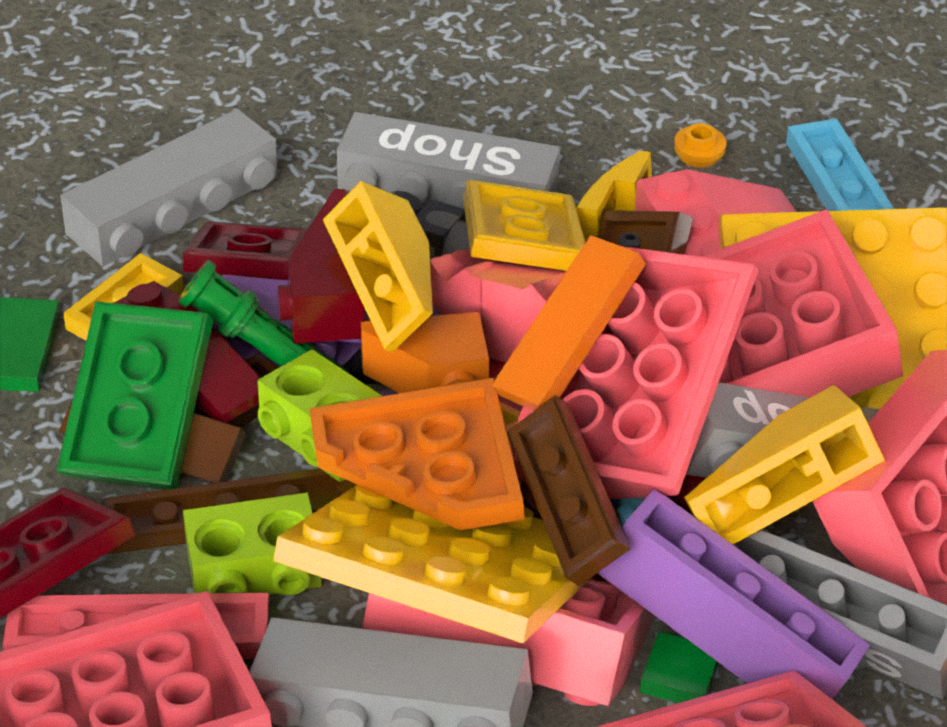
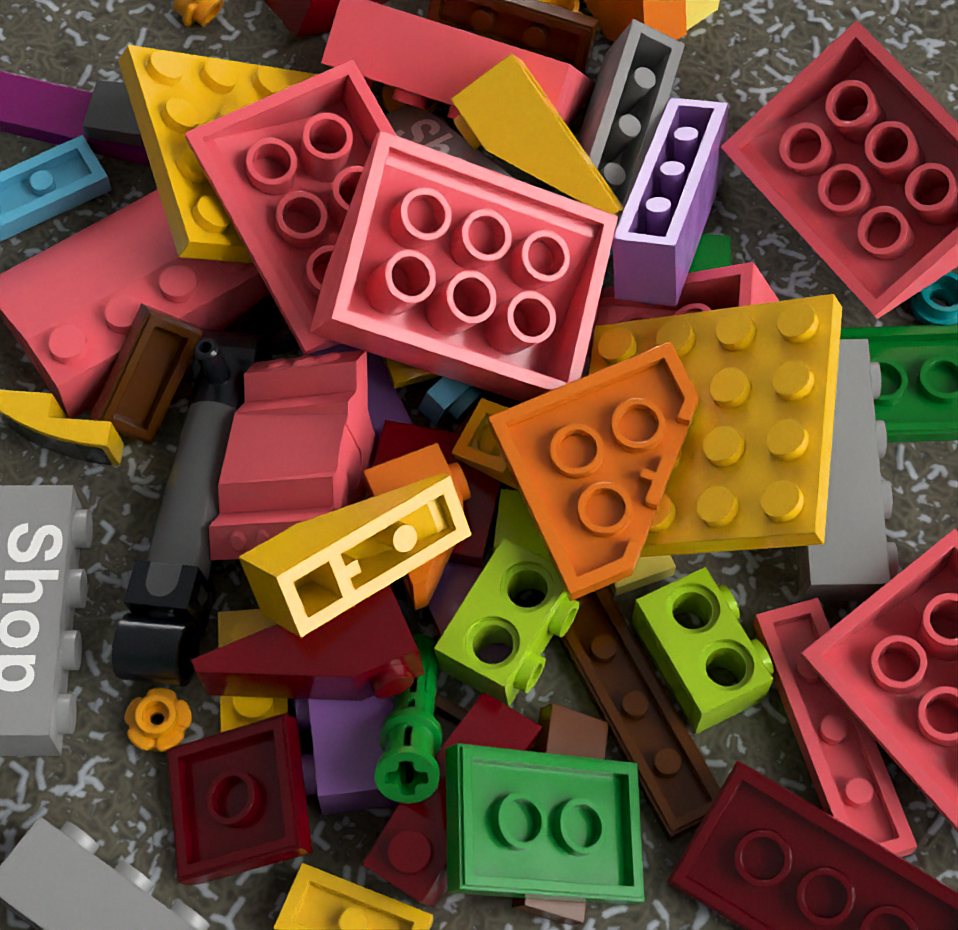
camera: 105 degrees left, 20 degrees up
(522, 225) = (173, 480): yellow tile -> none
(568, 491) = (633, 312): reddish brown tile -> none
(569, 323) = (444, 325): orange tile -> none

